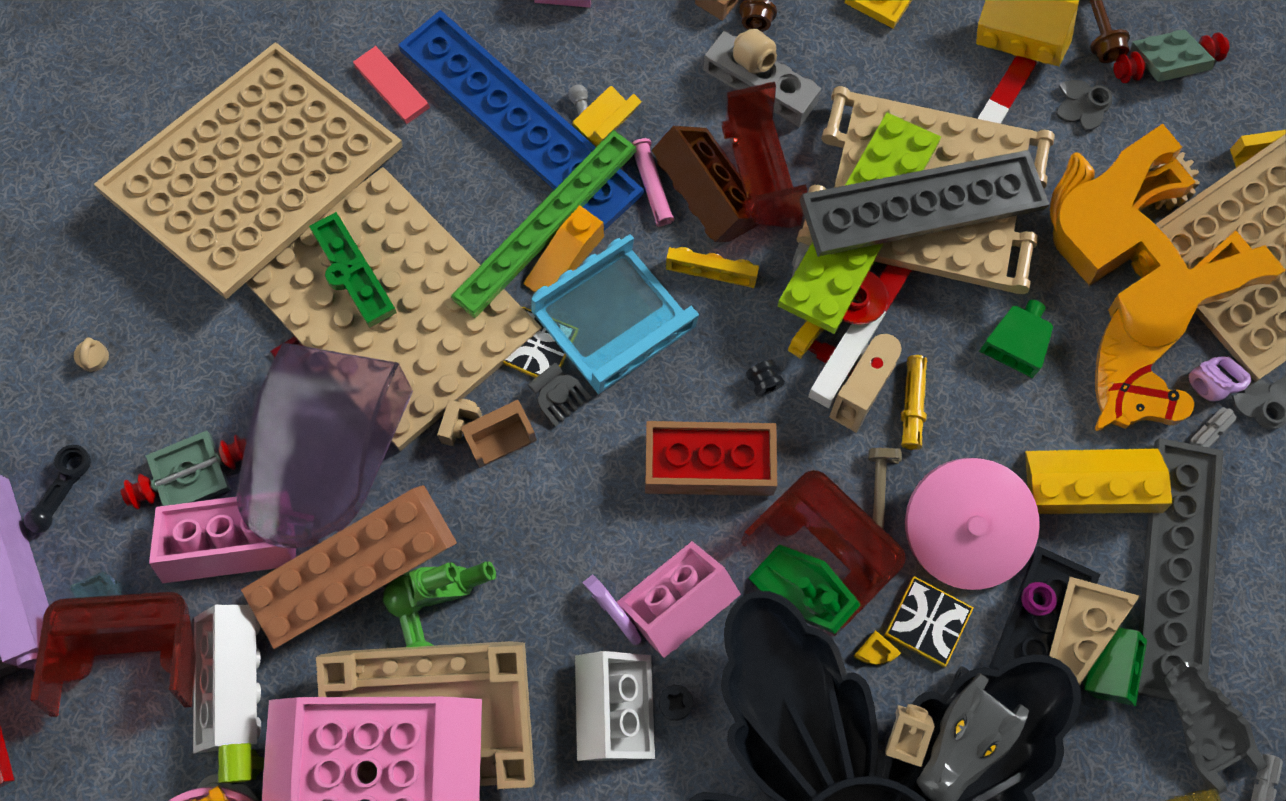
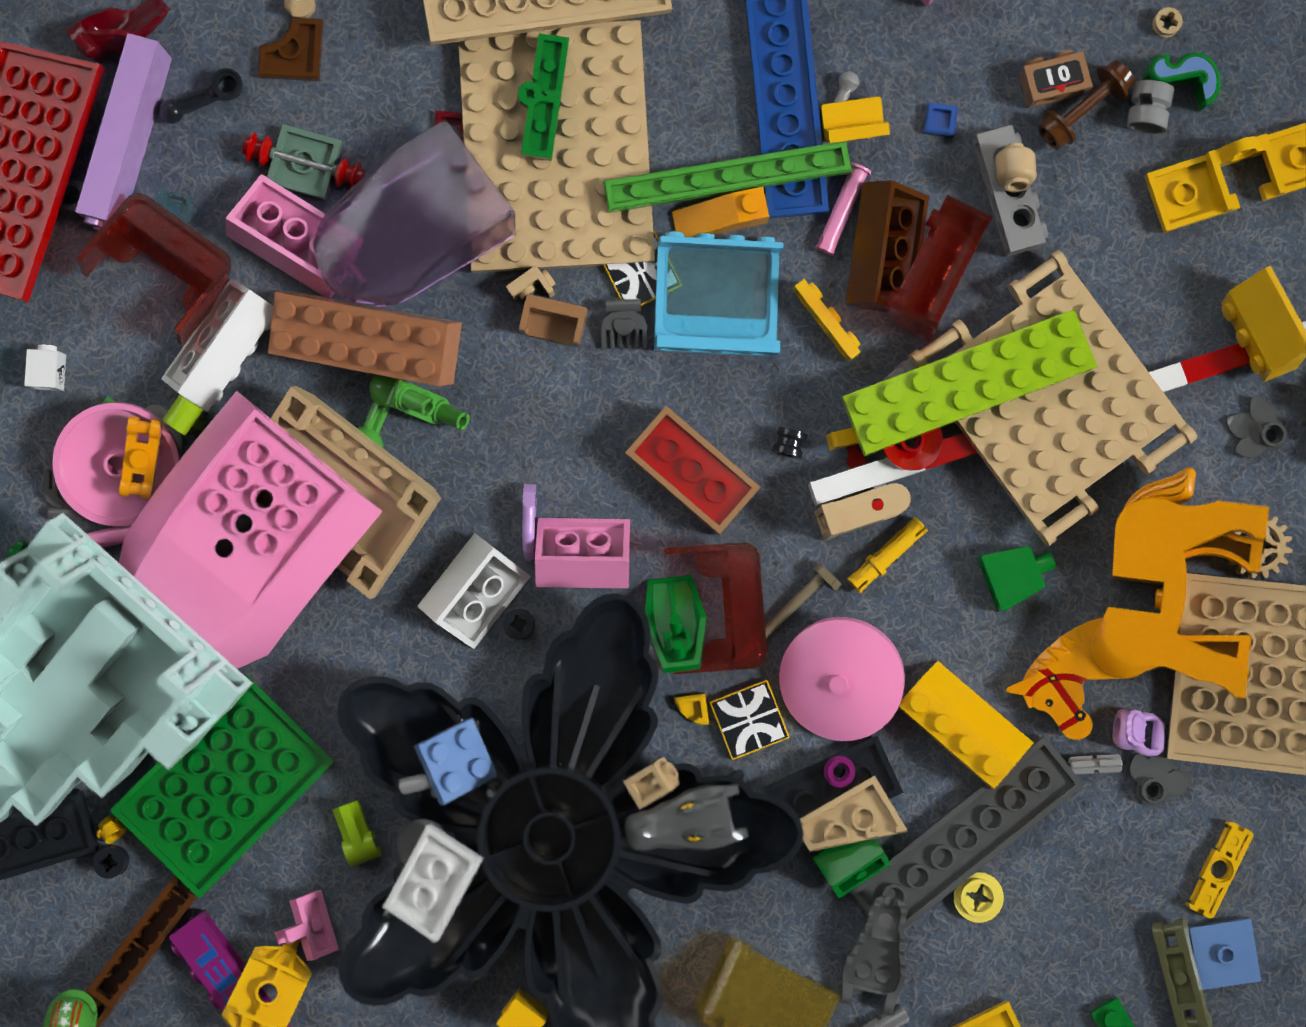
camera: 40 degrees right, 15 degrees up
(116, 396) = (295, 54): none -> reddish brown tile
(668, 72) = (940, 120): none -> blue tile
(923, 202) = (1026, 411): dark grey plate -> none
(1247, 615) = (984, 910): none -> light yellow gear

